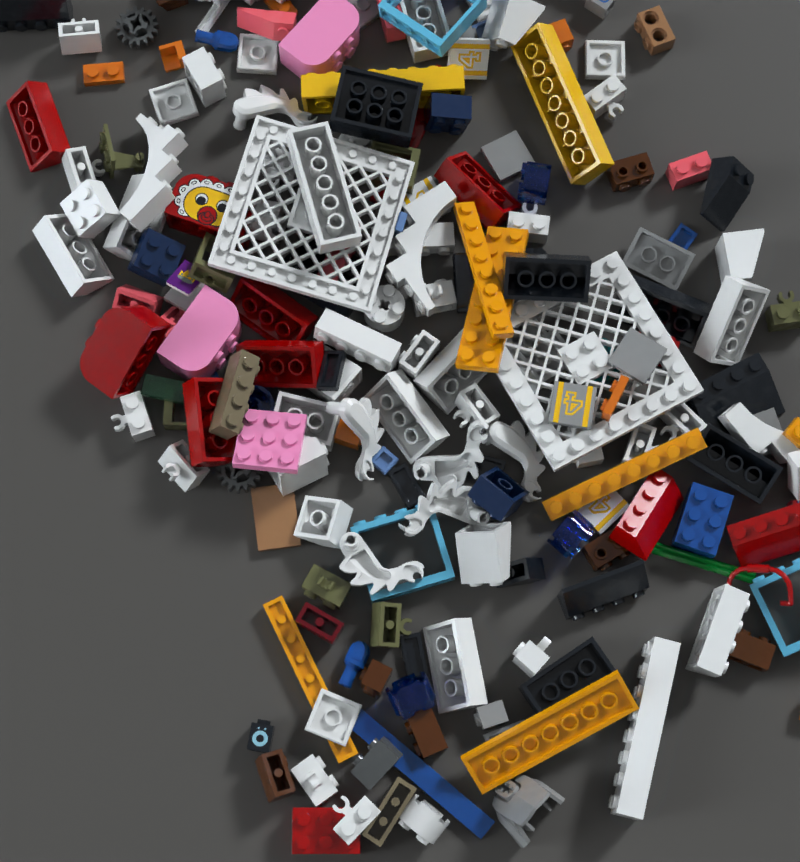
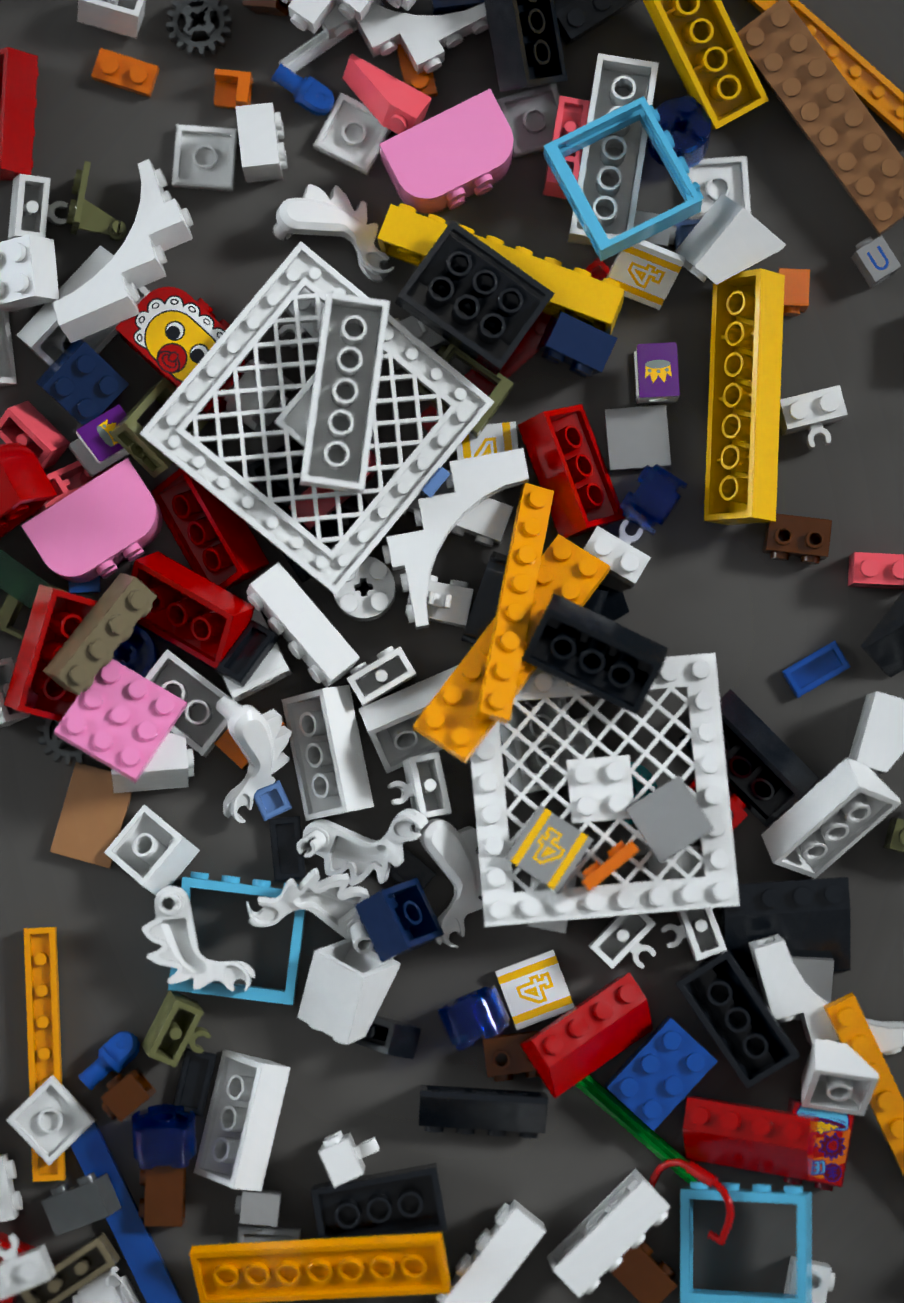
camera: 25 degrees right, 10 degrees up
(319, 623) = (86, 988): dark red brick -> none
(326, 587) = (117, 941): olive brick -> none
(502, 113) = (656, 373): none -> dark purple piece
(604, 59) = (842, 351): white tile -> none
(624, 474) = (582, 967): light orange plate -> none
(658, 259) = (775, 681): light grey plate -> none

